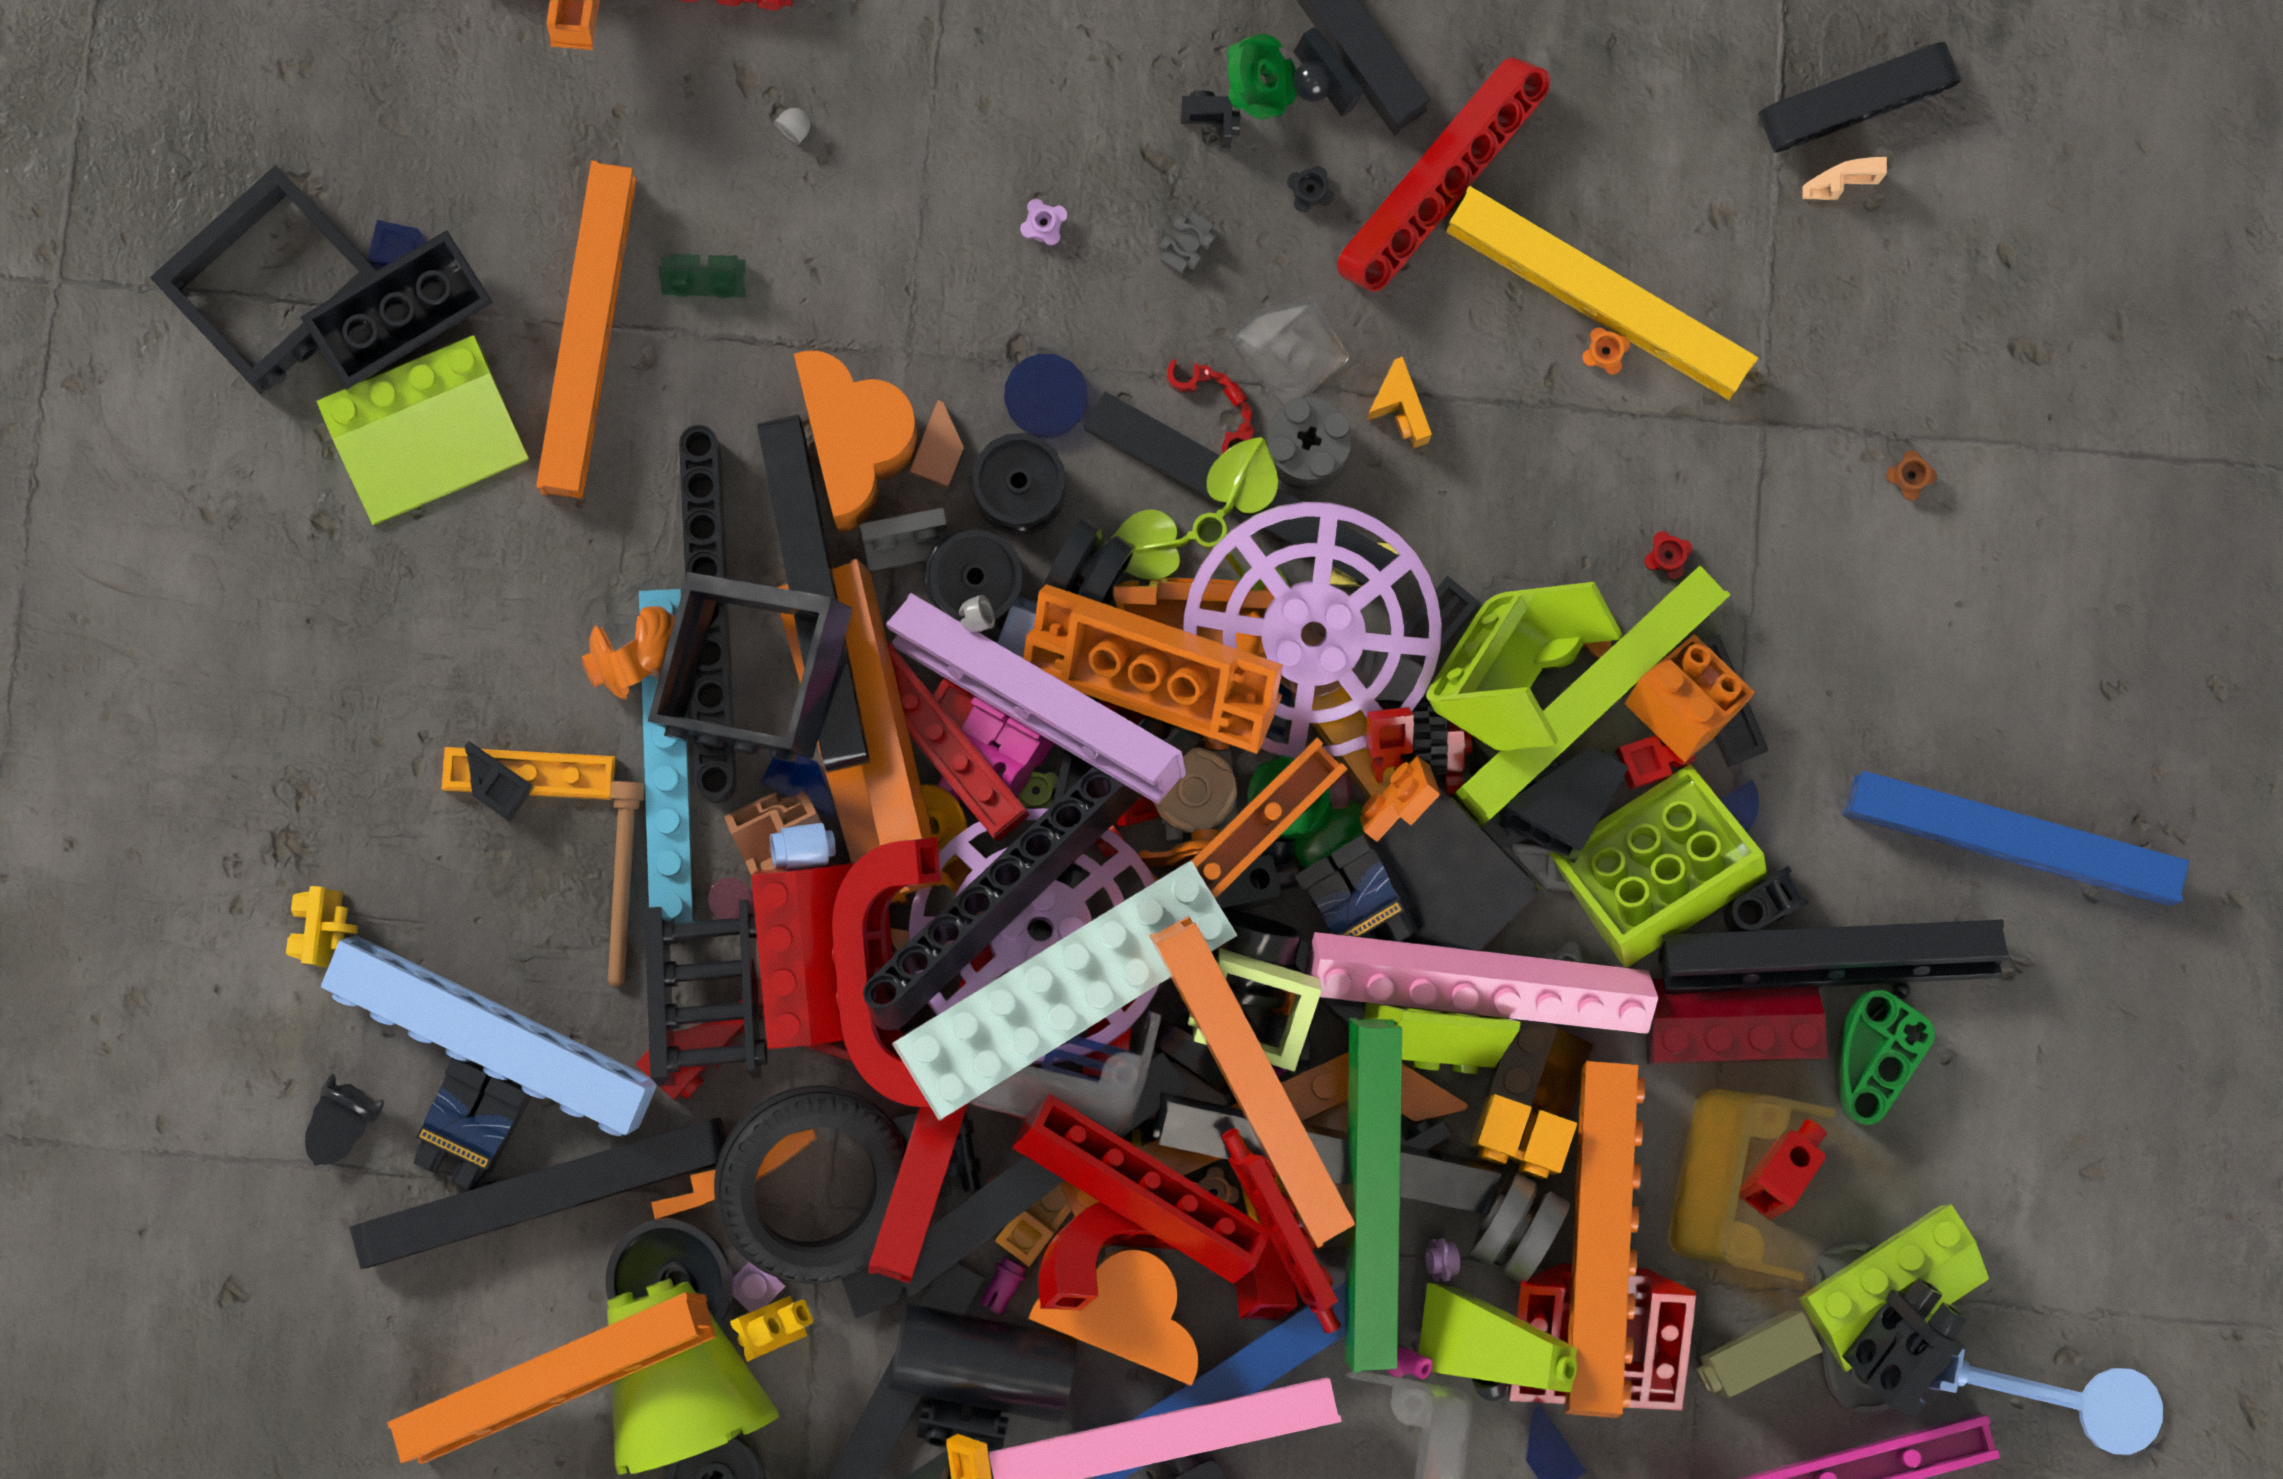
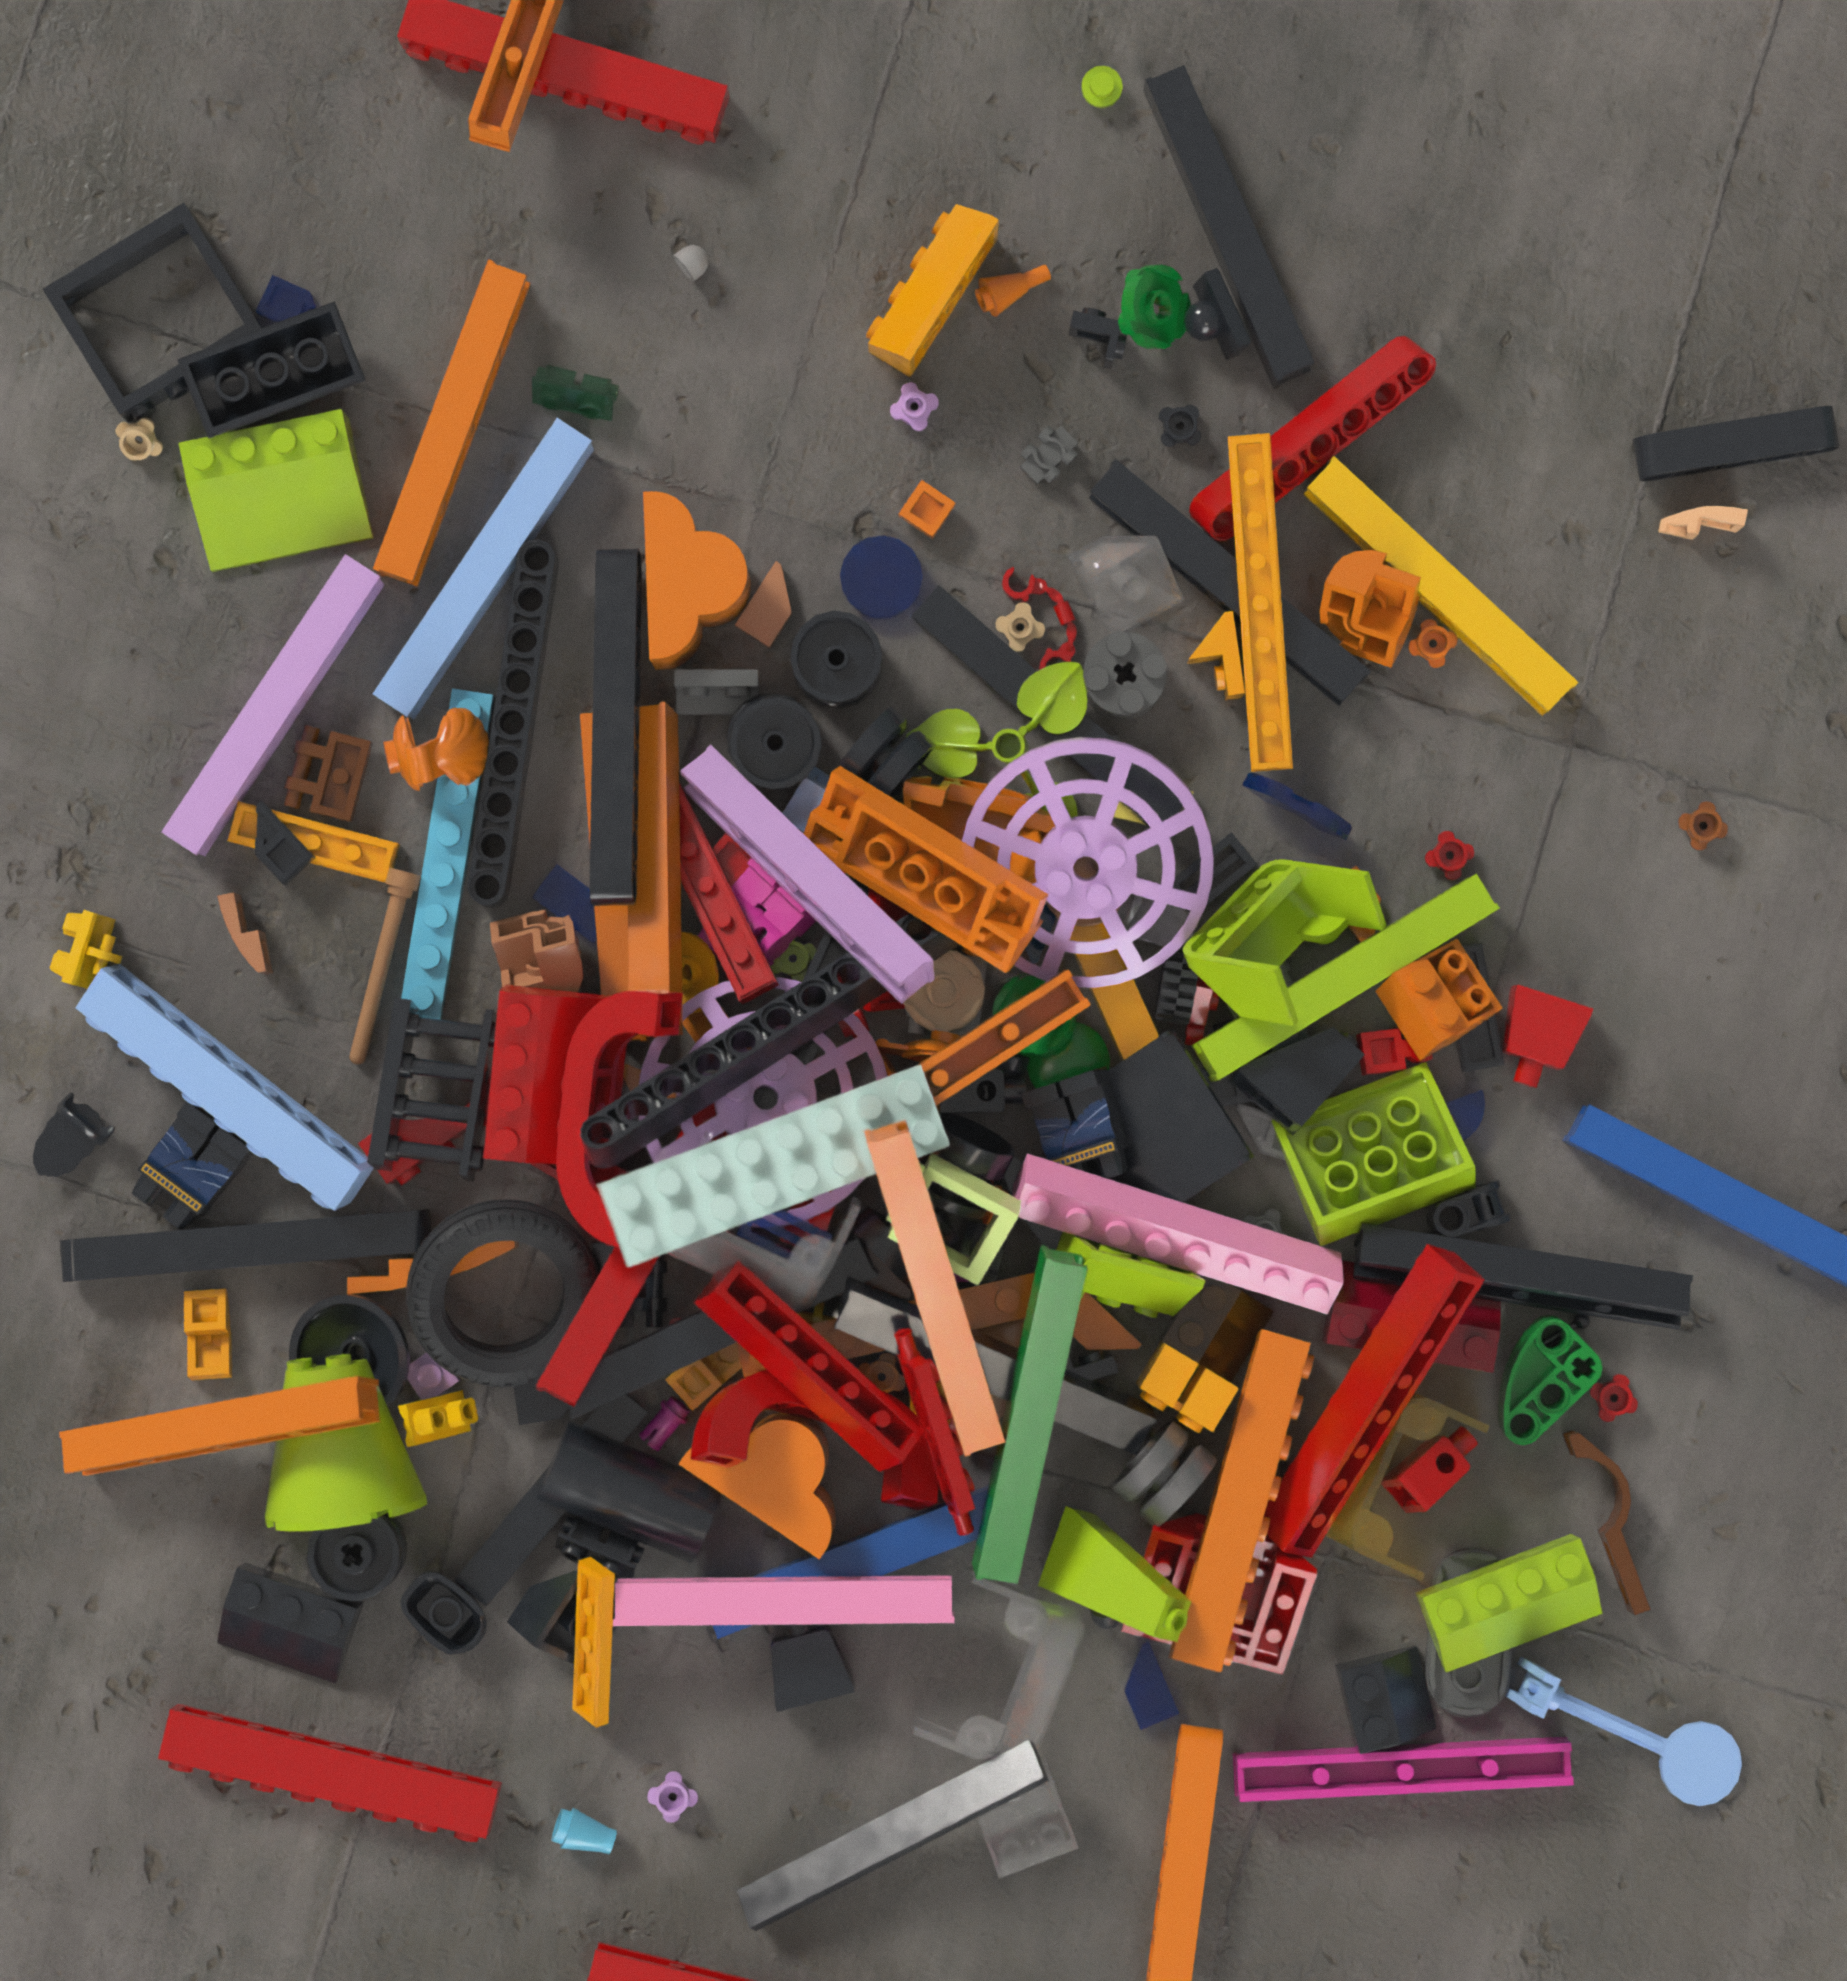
camera: 20 degrees right, 5 degrees up
(273, 419) = (131, 446): none -> tan plate
(463, 644) = (274, 706): none -> lavender tile
(485, 886) = (251, 944): none -> nougat slope
(519, 1292) = (208, 1334): none -> light orange slope
(543, 701) = (339, 777): none -> reddish brown plate
(647, 466) = (484, 569): none -> light blue tile
(686, 649) = (483, 759): black window -> none
(725, 897) = (476, 999): clear pink tile -> none
(802, 847) = (554, 972): light blue brick -> none
(977, 614) = (769, 781): light grey hinge -> none
(1039, 102) = (933, 288): none -> light orange slope
(1077, 319) = (927, 509): none -> orange plate
(1106, 93) = (1001, 291): none -> orange cone
(1194, 428) = (1016, 638): none -> tan plate
(1341, 791) = (1083, 1022): tile -> none
(1388, 737) = (1137, 981): red plate -> none
(1394, 332) = (1215, 575): none -> black tile
(1406, 797) = (1139, 1044): orange plate -> none
(1411, 1363) = (1034, 1578): dark pink arm -> none
(1428, 342) = (1260, 602): none -> light orange tile
(1442, 1259) = (1085, 1486): lavender plate -> none
(1489, 528) = (1283, 797): none -> clear blue tile
(1536, 324) = (1369, 605): none -> orange brick
(1711, 1108) = (1370, 1399): none -> red brick
(1757, 1354) = (1364, 1640): olive brick -> none
(1792, 1415) = (1385, 1699): none -> black slope
(1797, 709) = (1541, 1031): none -> red torso
(1907, 1346) = (1507, 1664): black hips -> none
(1963, 1060) = (1625, 1403): none -> red plate
(1980, 1196) = (1610, 1532): none -> reddish brown piece

